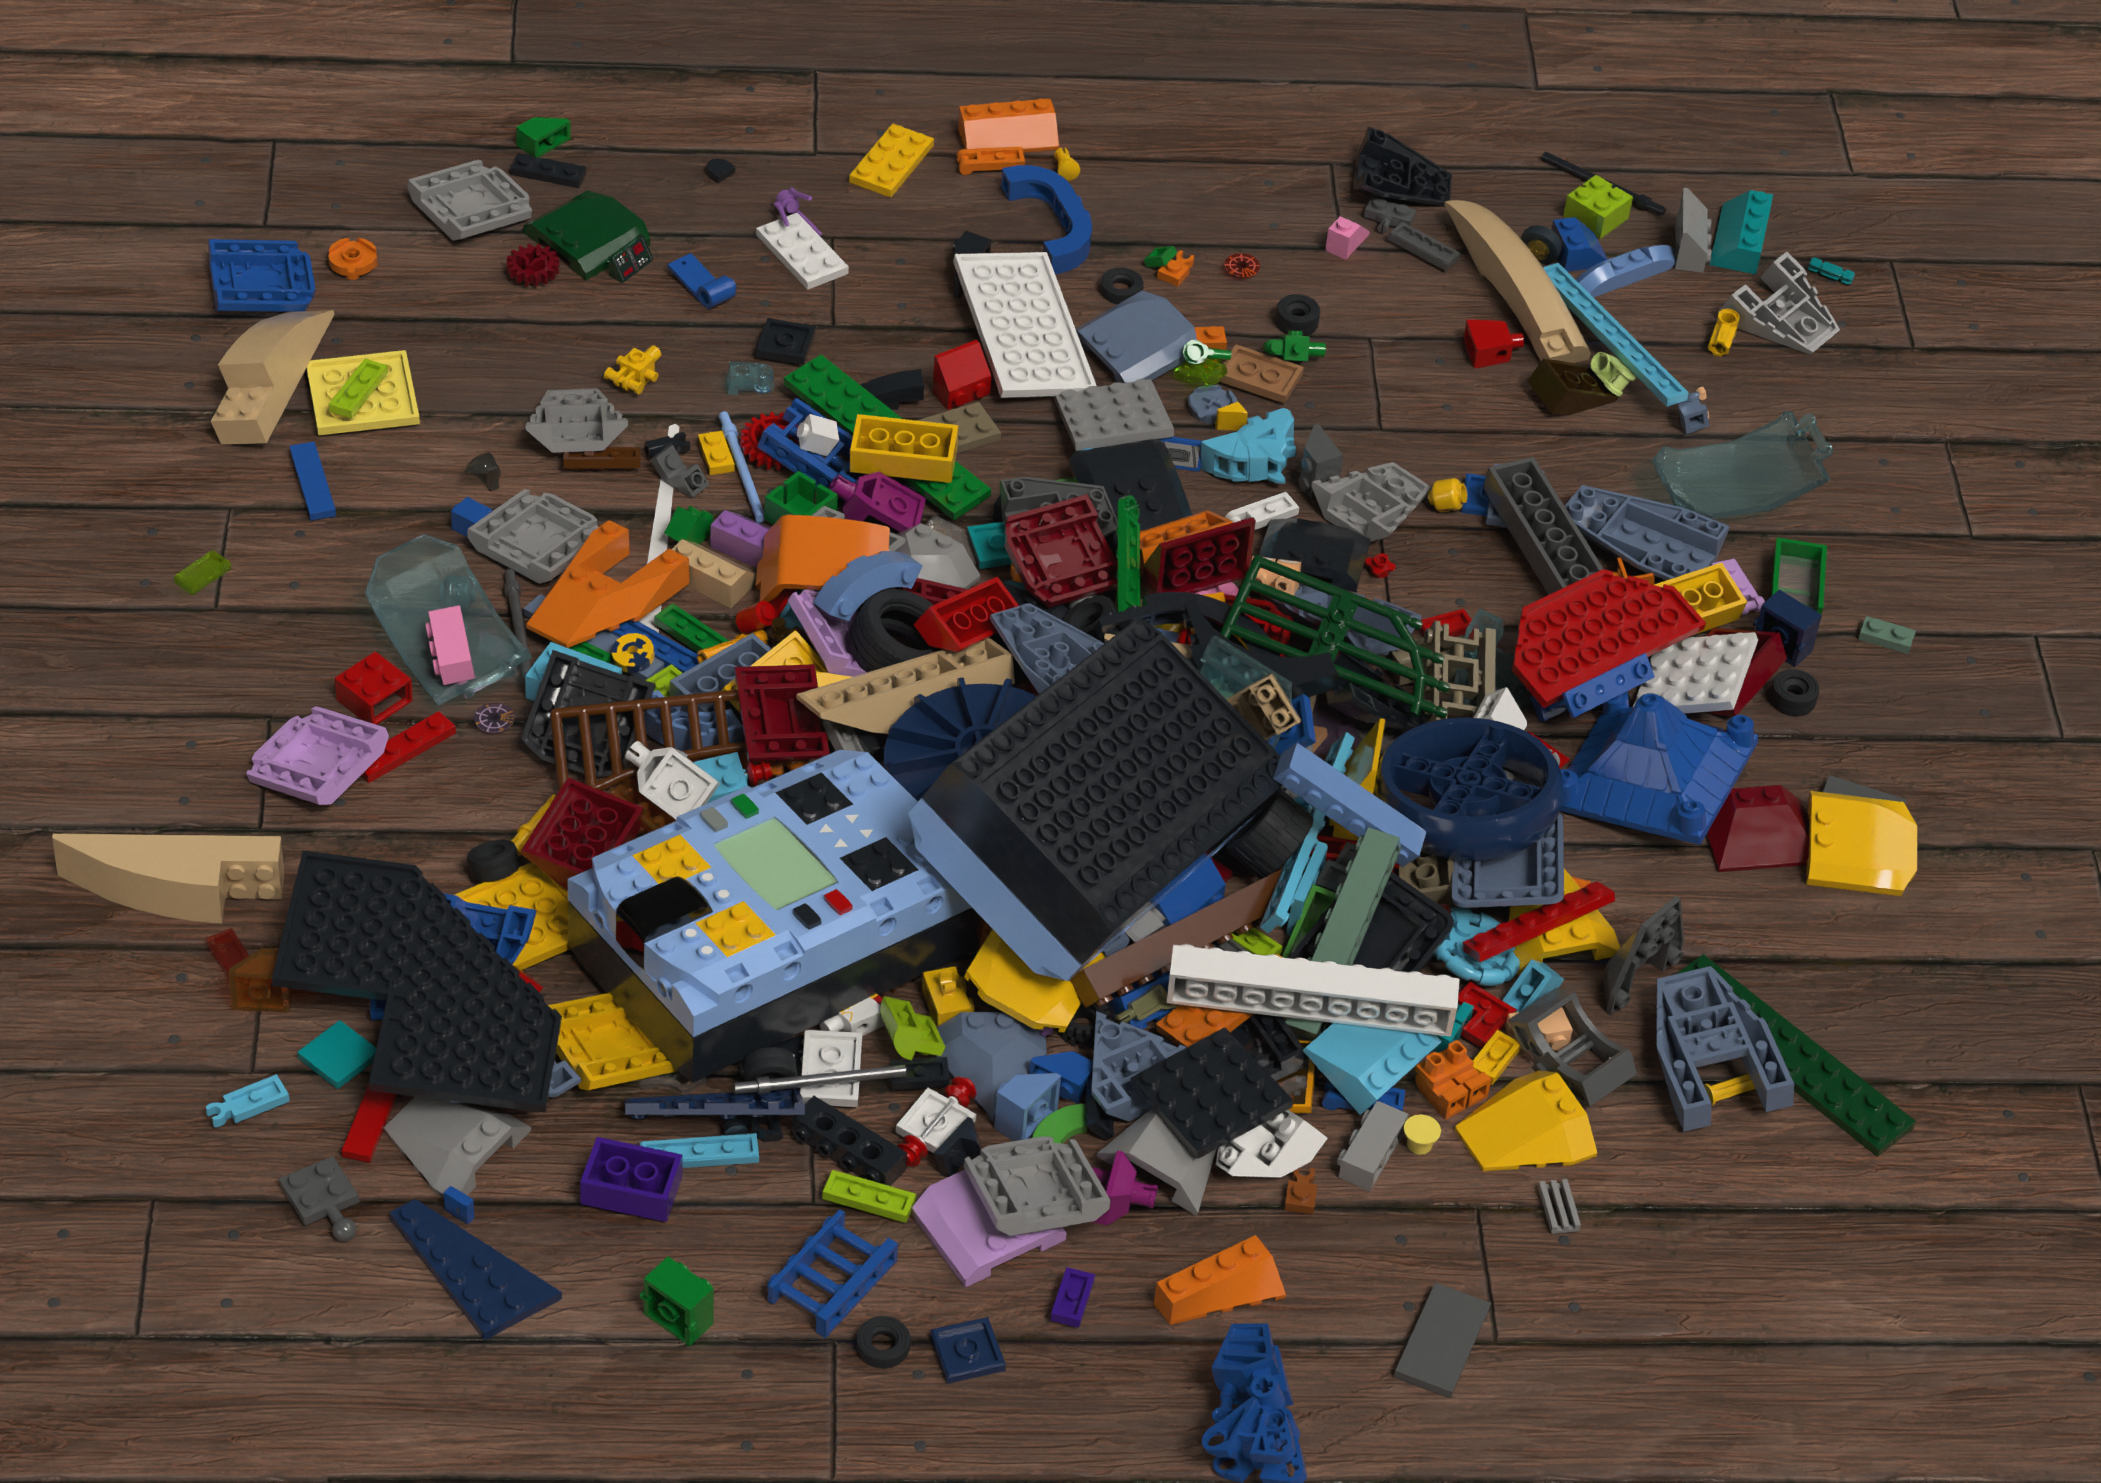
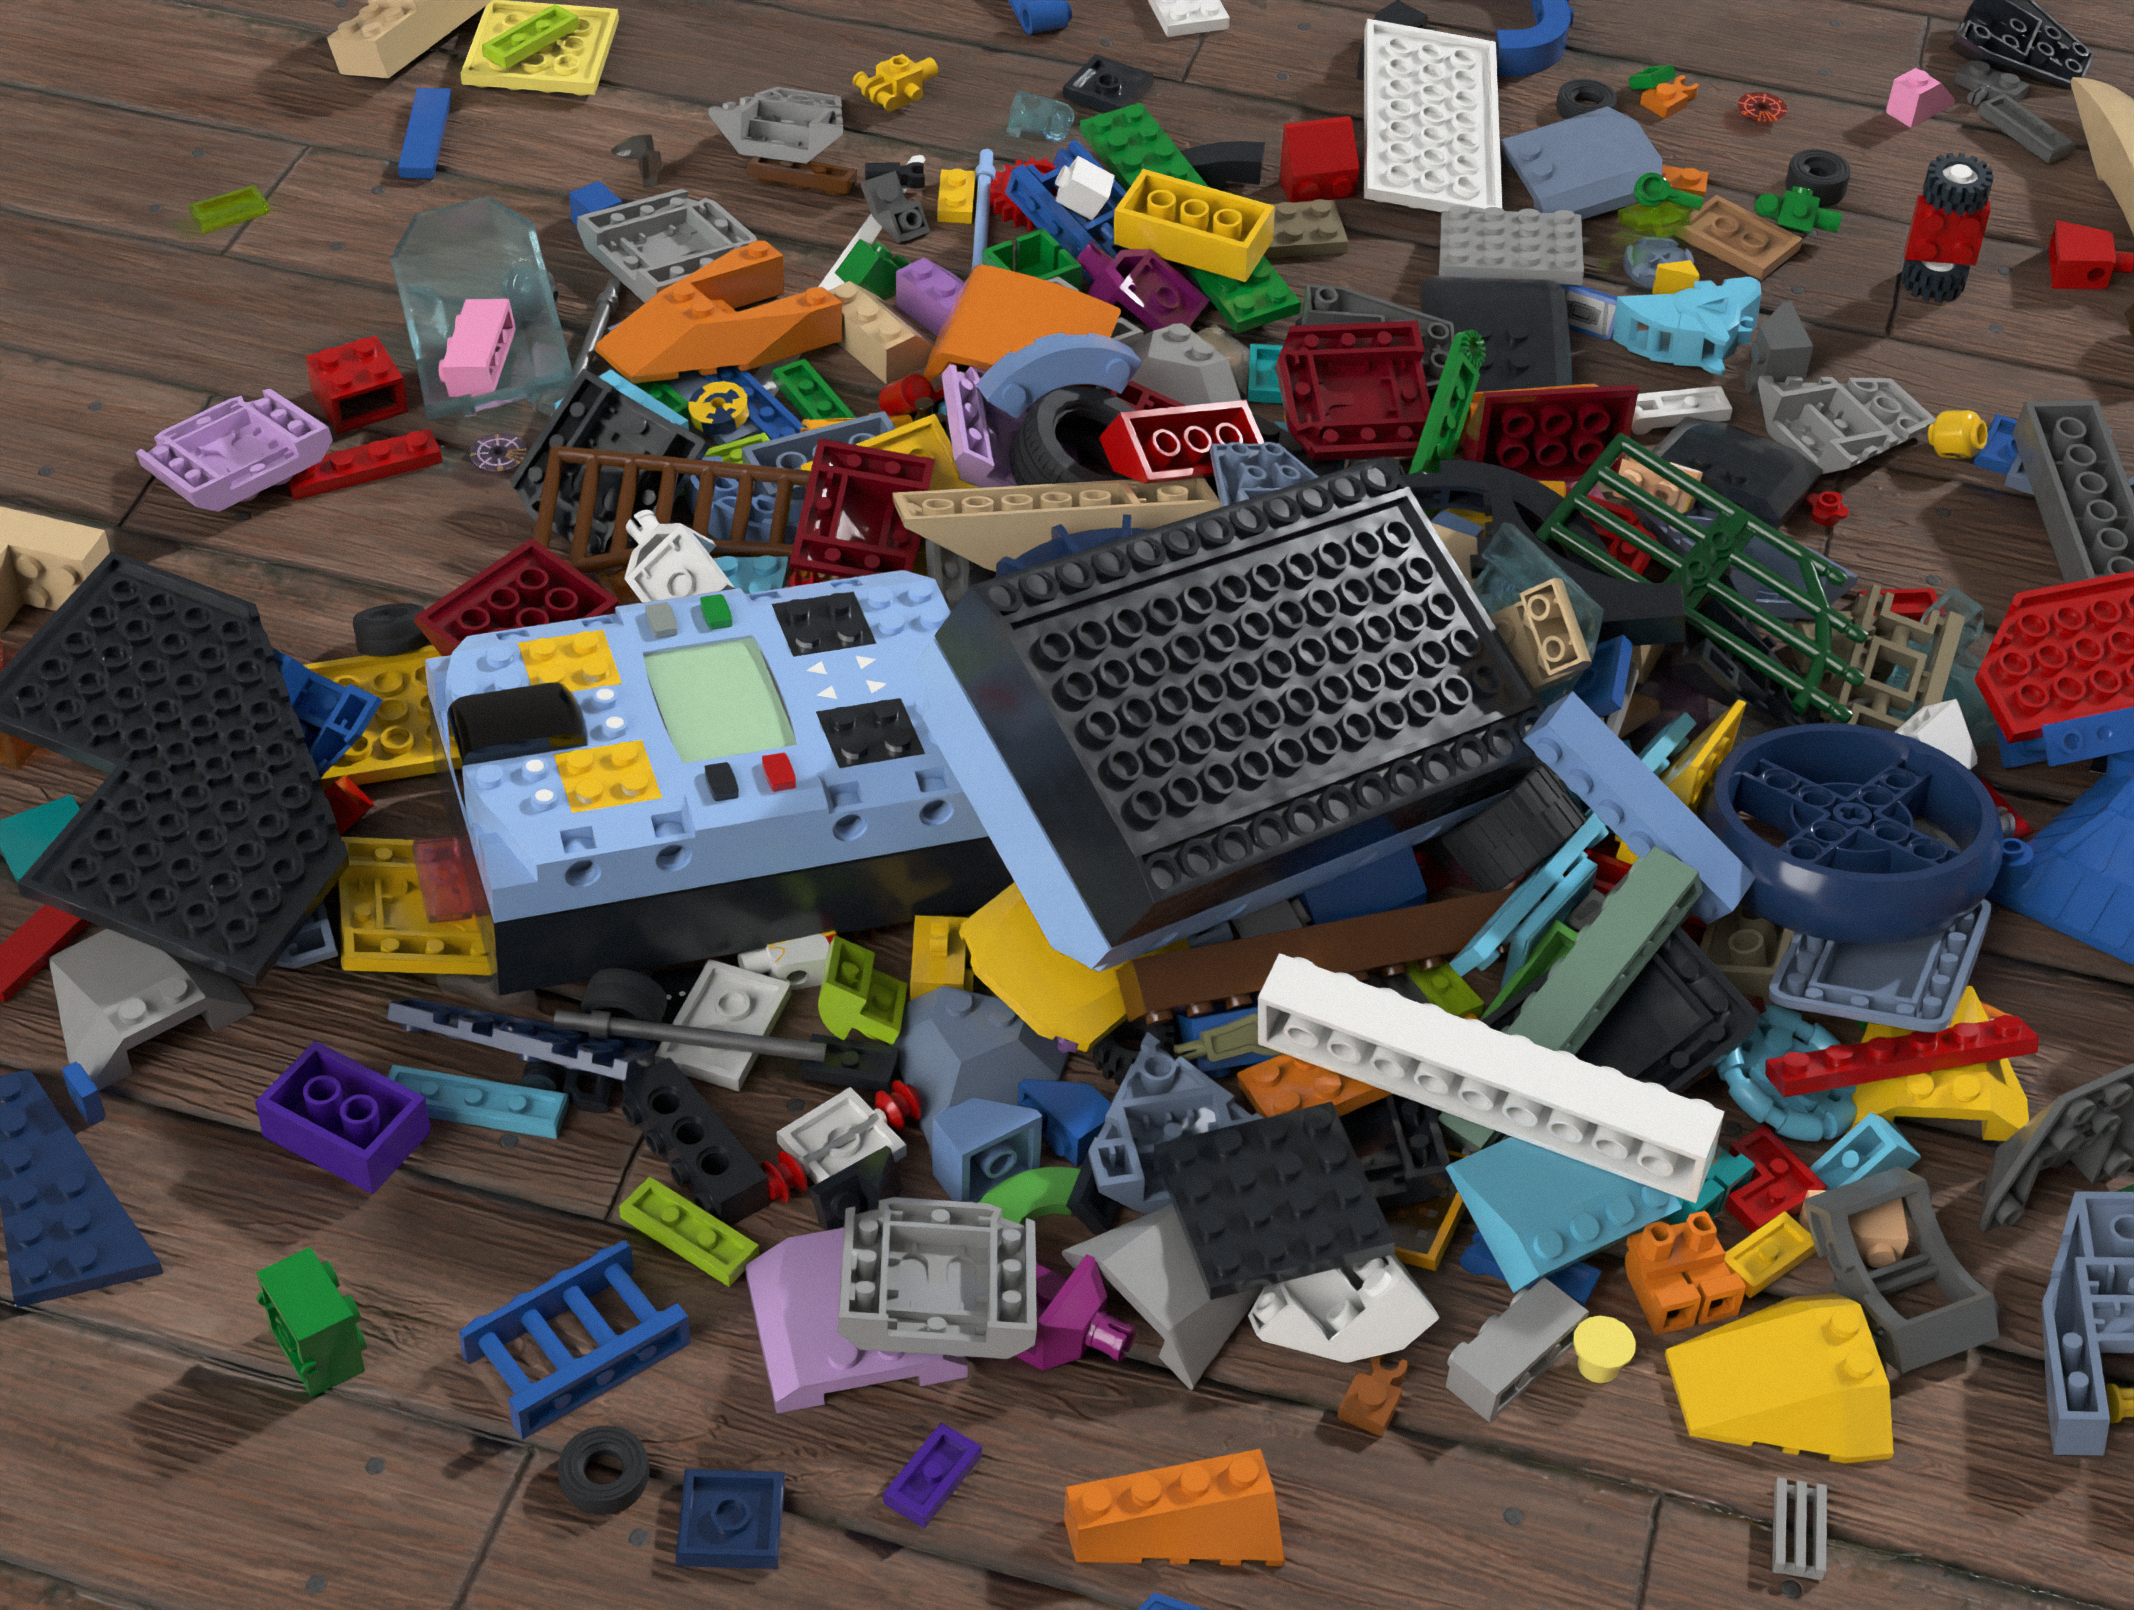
camera: 20 degrees right, 0 degrees up
(617, 1018) = (442, 879): none -> clear pink plate
(1401, 345) = (1947, 227): none -> plate

